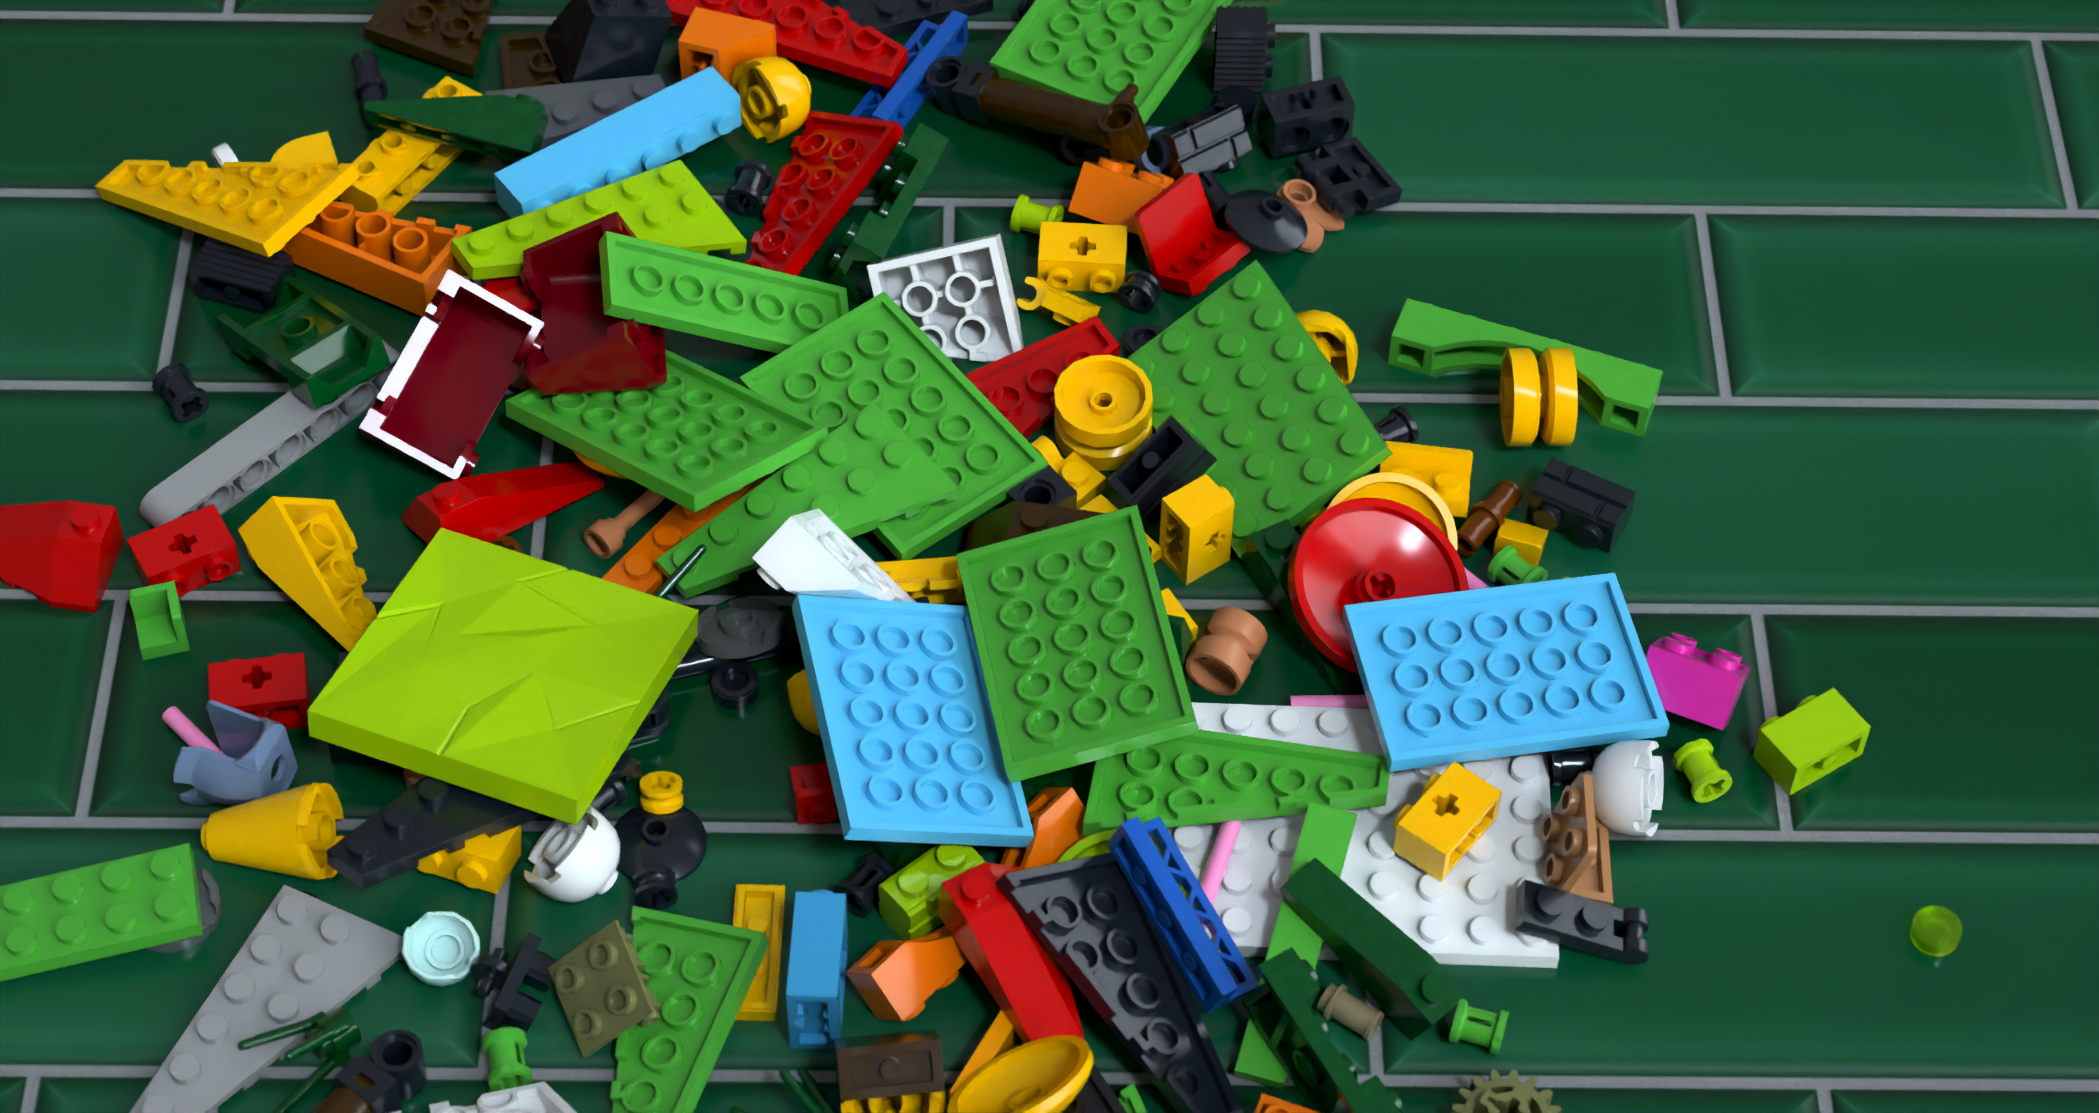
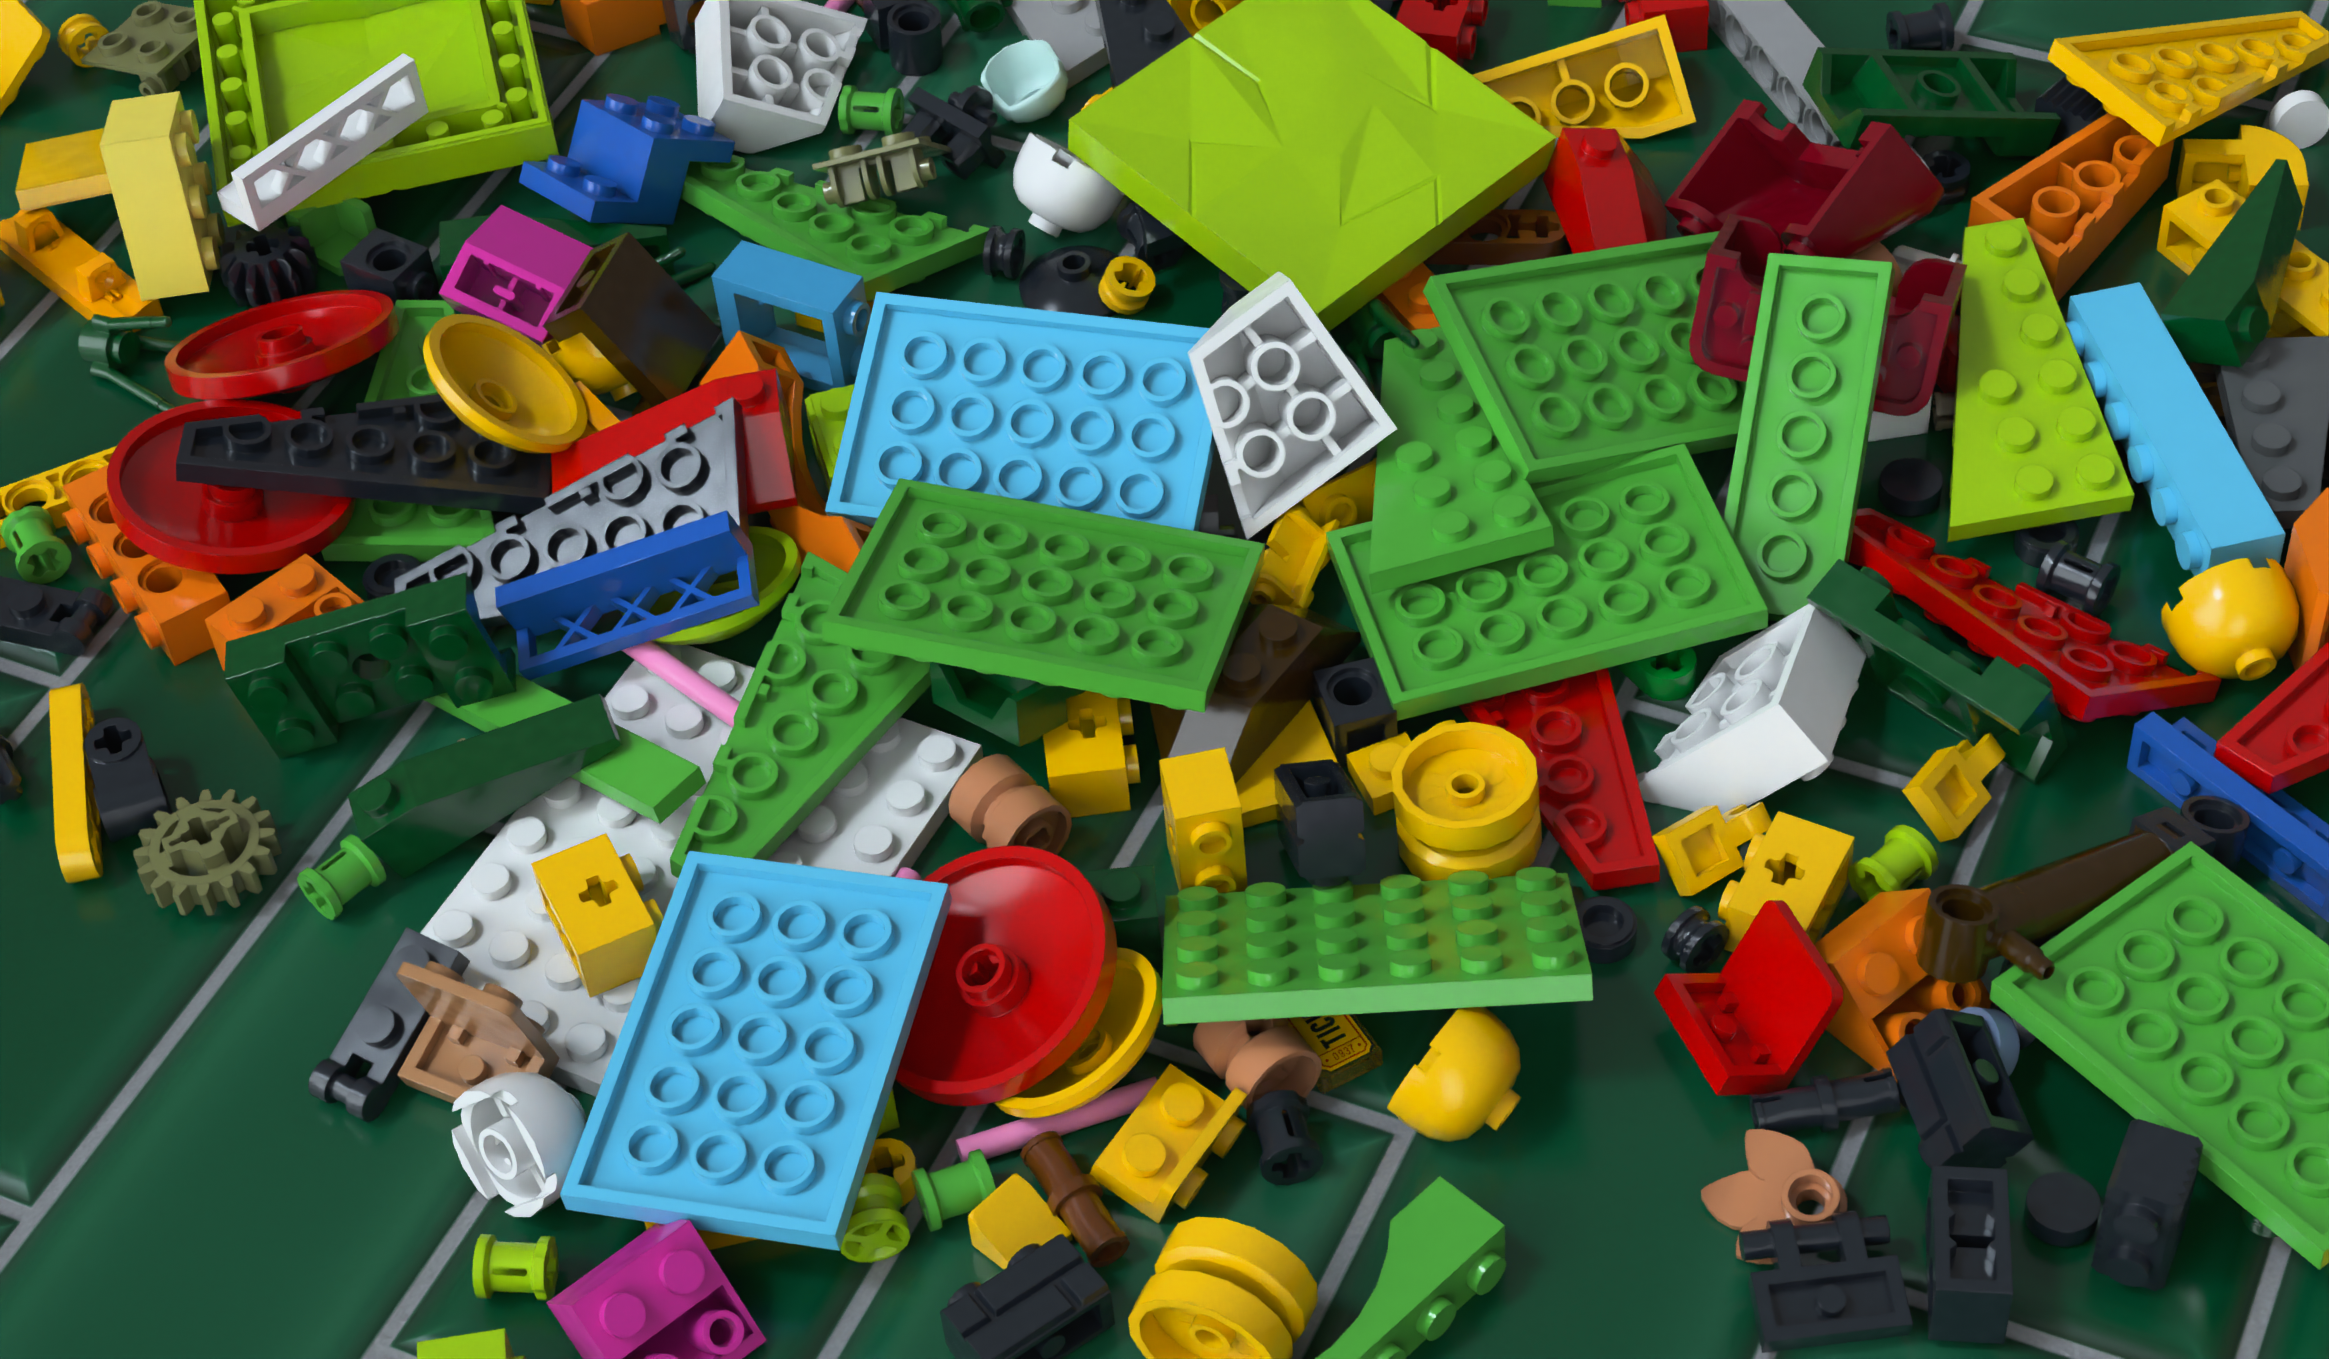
camera: 120 degrees right, 5 degrees down
(963, 208) = (1950, 787): none -> yellow plate
(1266, 221) = (1750, 1150): black dish -> none

